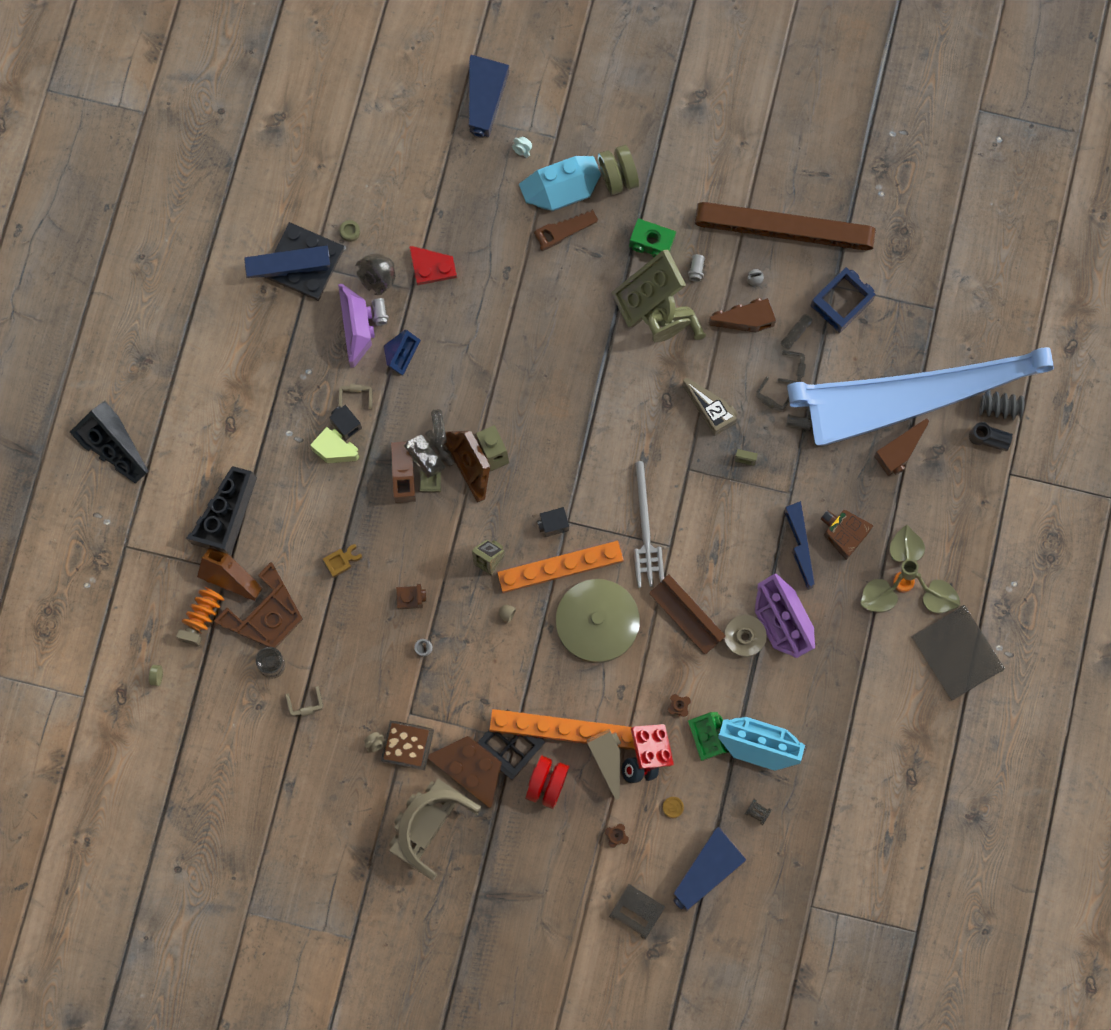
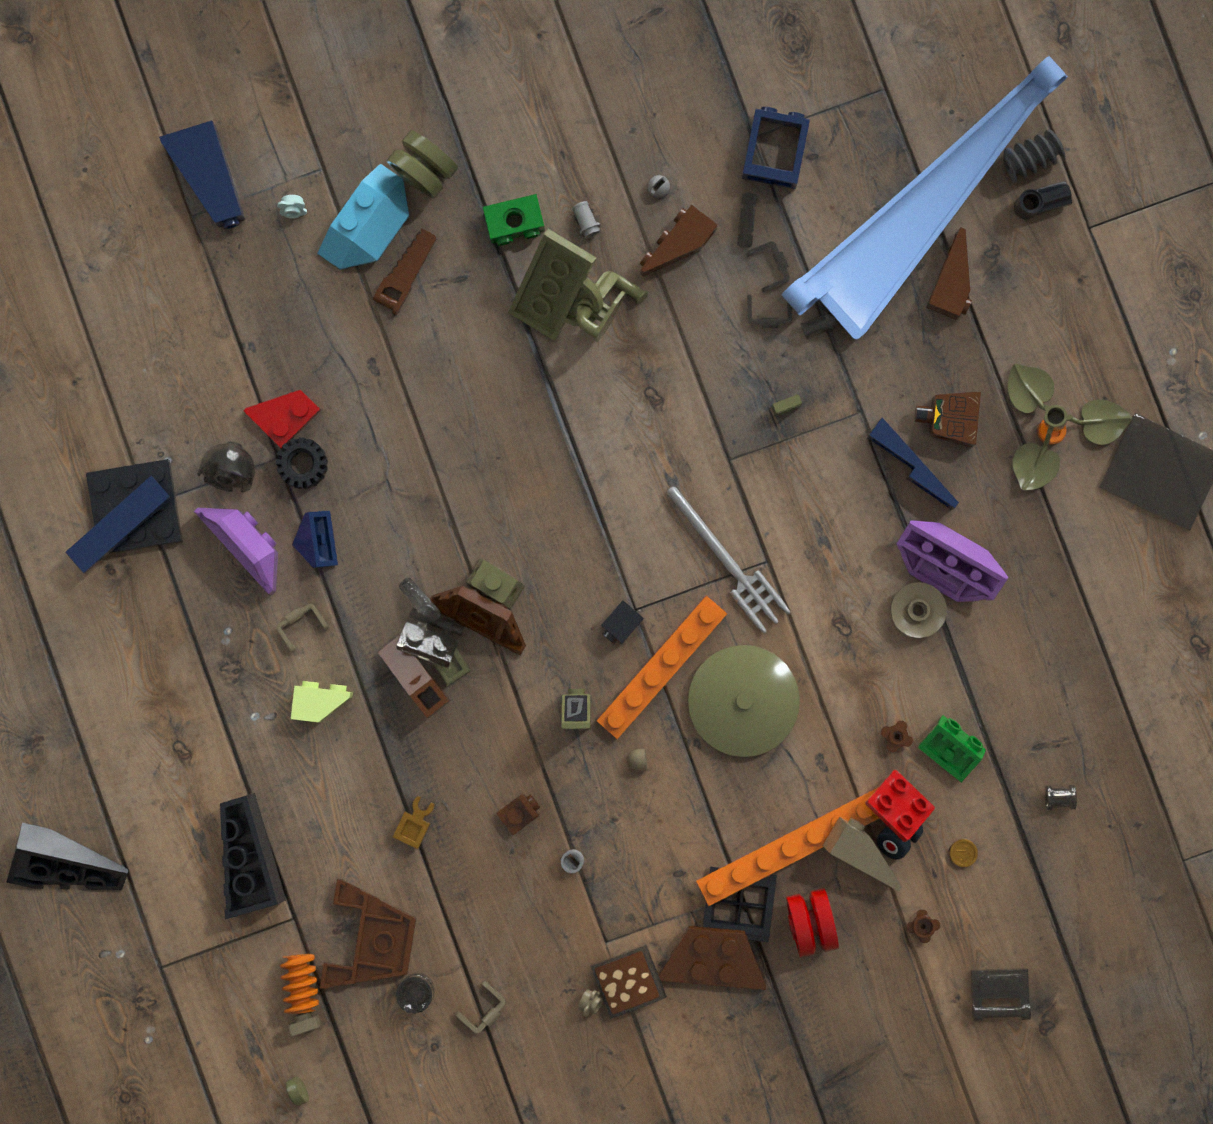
camera: 30 degrees left, 10 degrees up
(227, 573) = (299, 925): reddish brown slope -> none
(345, 422) = (309, 664): black brick -> none
(349, 230) = (162, 436): olive tile -> none
(380, 317) = (261, 510): light grey pin -> none
(423, 821) = (704, 1059): dark tan piece -> none
(432, 308) = (285, 458): none -> black tyre
(687, 614) = (838, 629): reddish brown panel -> none
(710, 868) = (1049, 898): dark blue slope -> none
(712, 408) = (713, 373): dark tan slope -> none
(761, 743) = (1016, 719): medium azure wedge -> none
(785, 226) = (653, 104): reddish brown beam -> none

